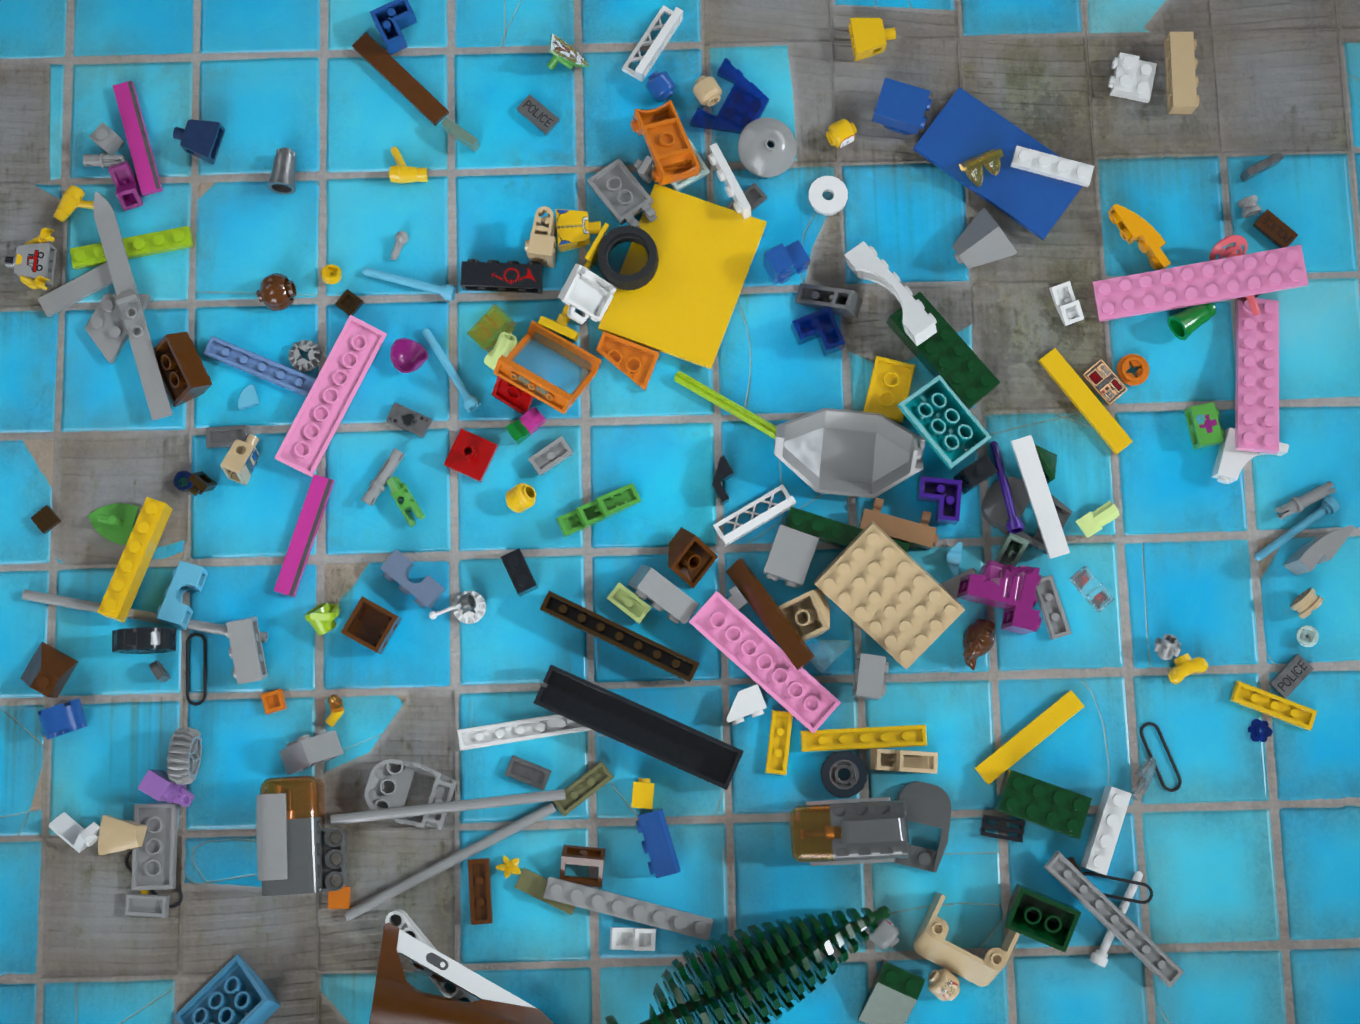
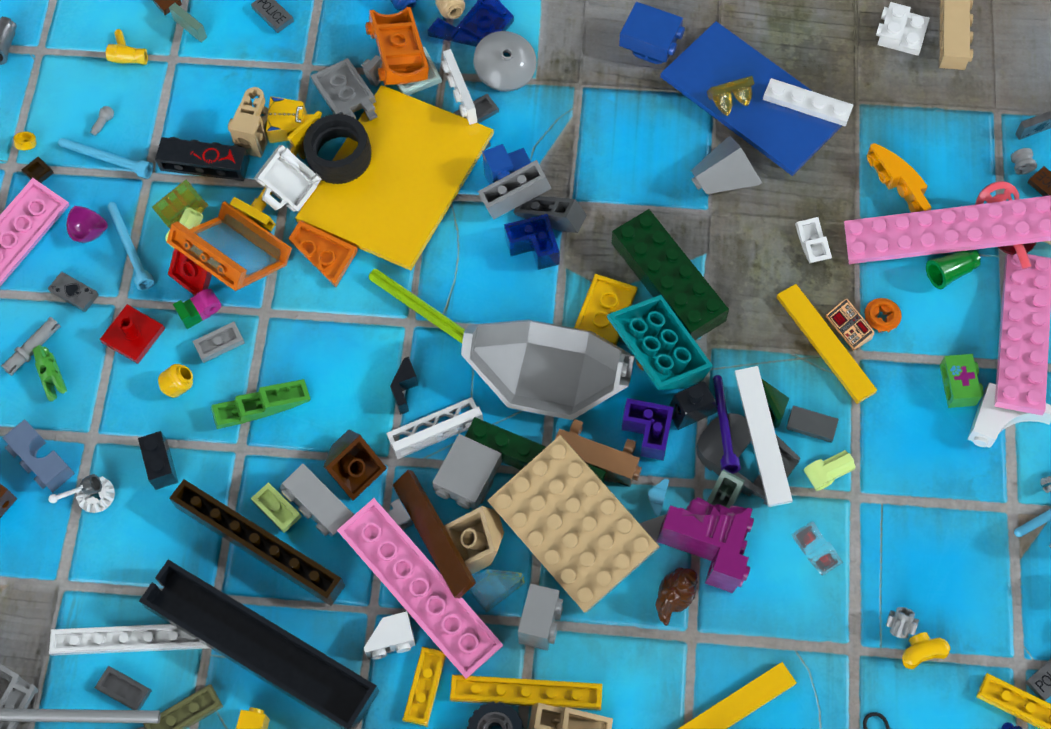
camera: 10 degrees right, 15 degrees down
(796, 283) = (514, 189): none -> light grey brick
(832, 185) = (566, 102): white tile -> none
(841, 133) = (585, 54): yellow head -> none
(868, 266) = (637, 230): white arch -> none
(1052, 608) = (767, 565): light grey tile -> none
(1079, 477) = (812, 424): none -> dark grey tile

